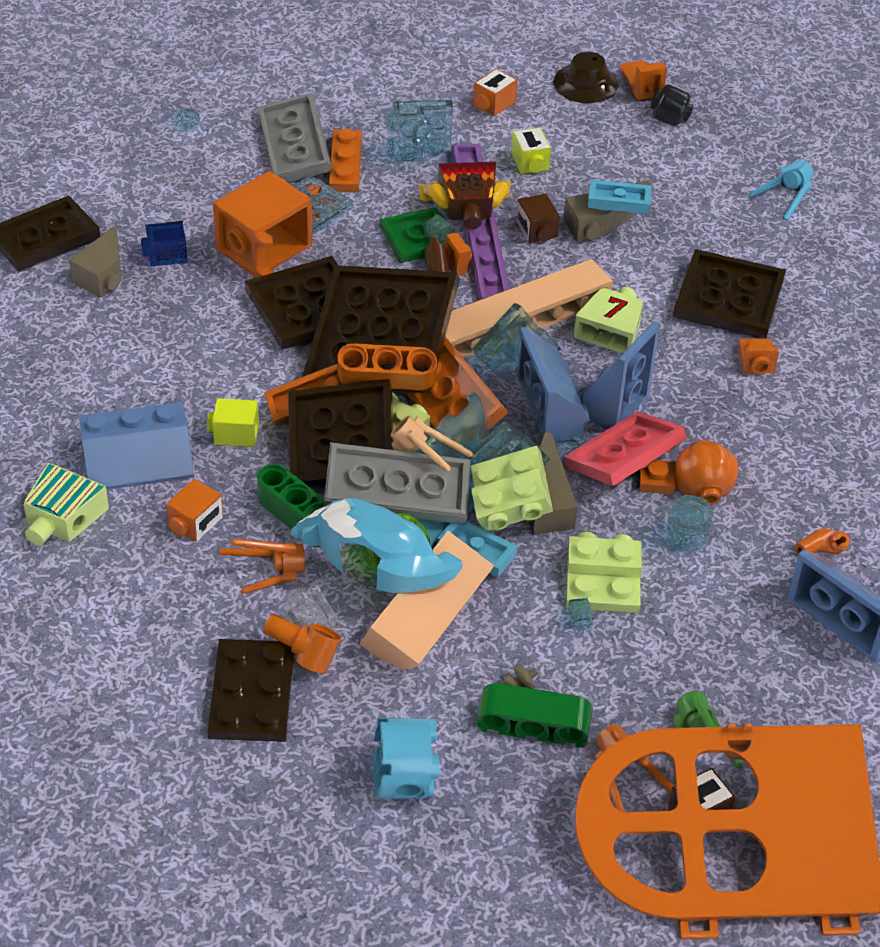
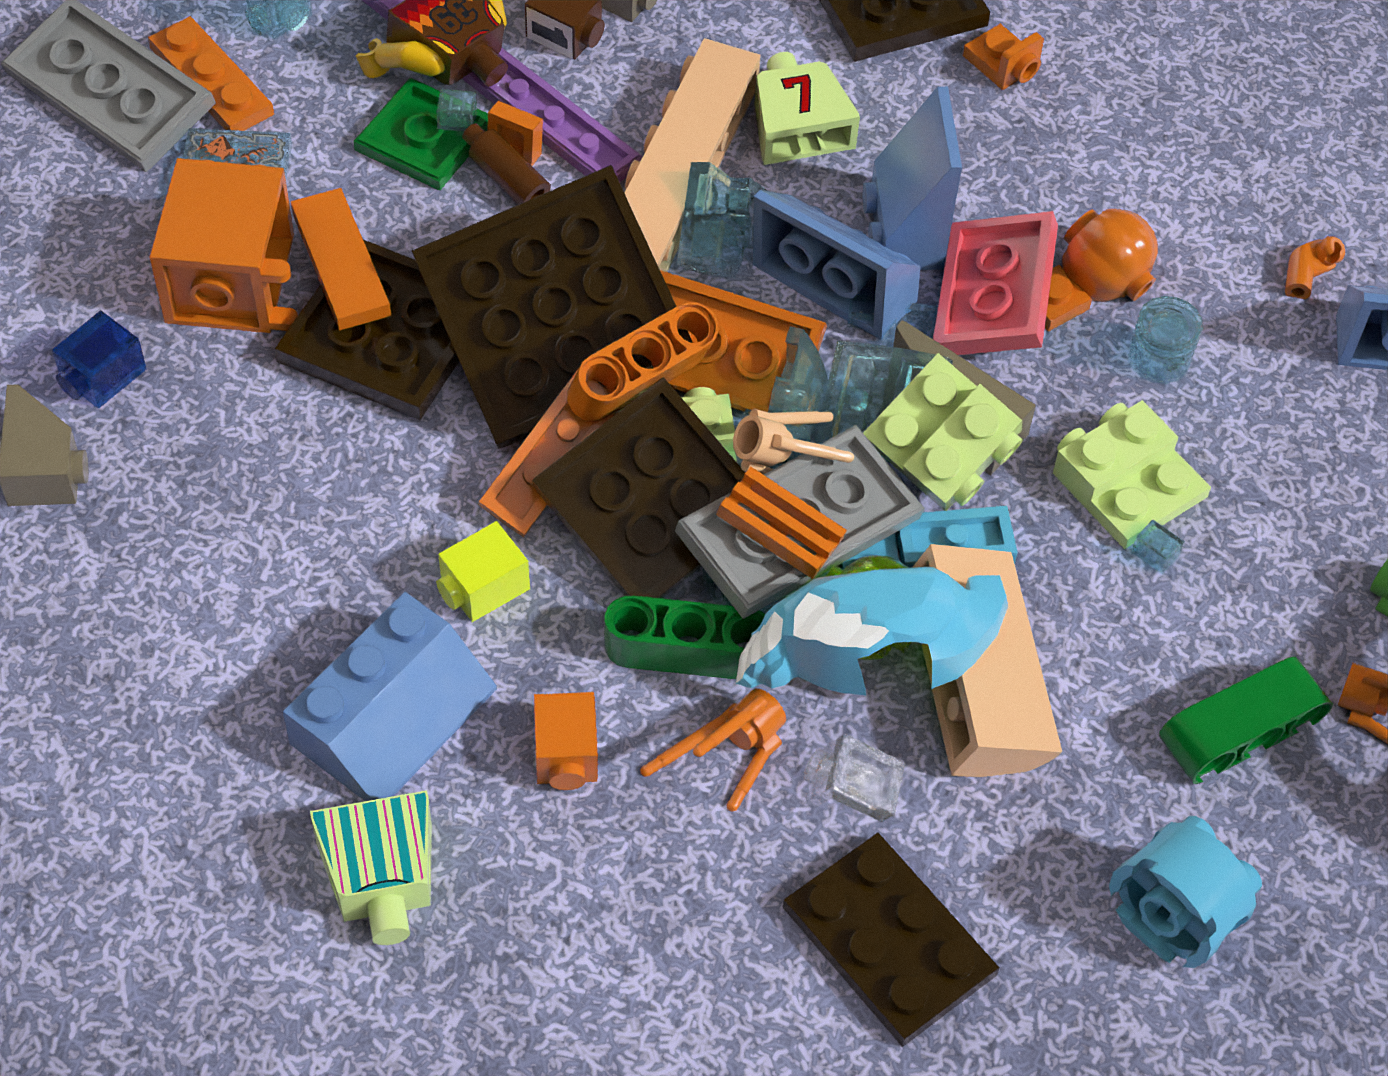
camera: 40 degrees left, 10 degrees up
(311, 259) = (340, 259): none -> orange tile
(312, 644) = (916, 823): orange pin -> none
(372, 449) = (786, 517): none -> orange tile
(522, 677) = (1182, 683): dark tan hair -> none

